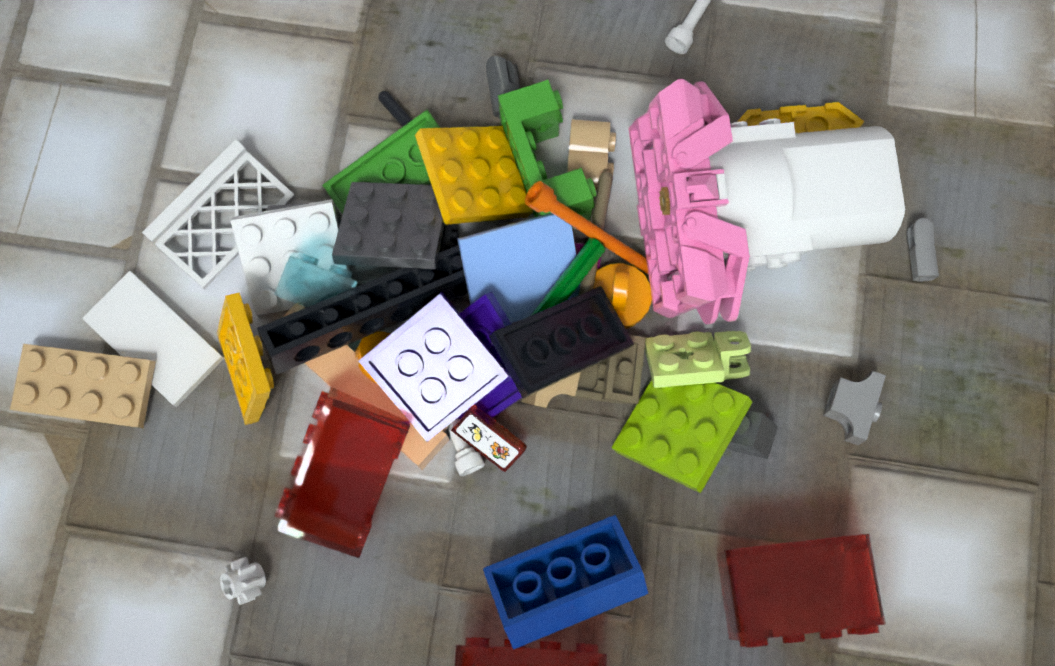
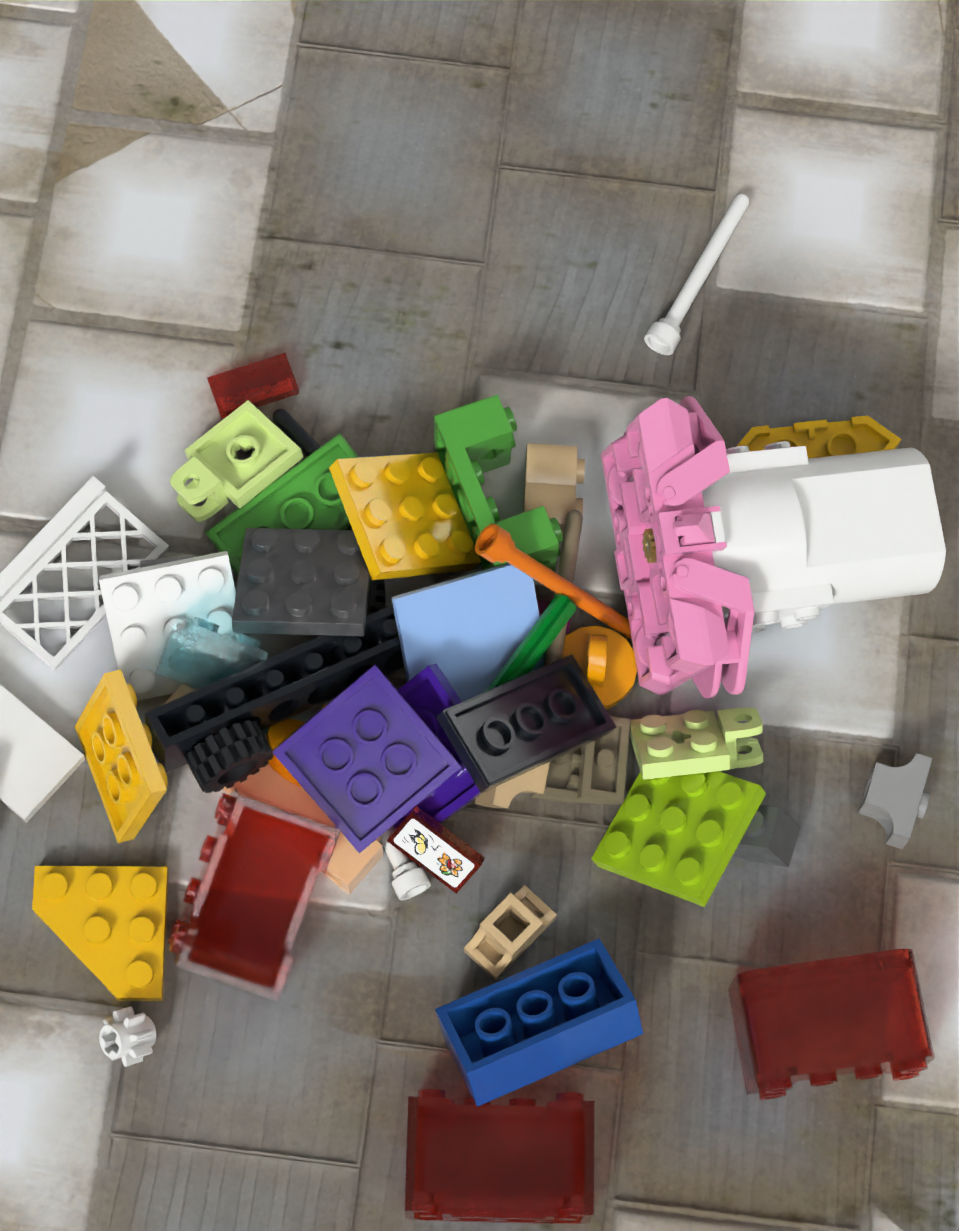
camera: 10 degrees left, 5 degrees down
(235, 488) = (110, 922): none -> yellow plate
(325, 363) = (229, 756): none -> black tyre
(336, 139) = (220, 473): none -> yellowish green plate
(364, 73) = (257, 382): none -> clear red tile
(502, 79) = (435, 394): dark grey arm -> none
(545, 504) = (509, 931): none -> tan brick

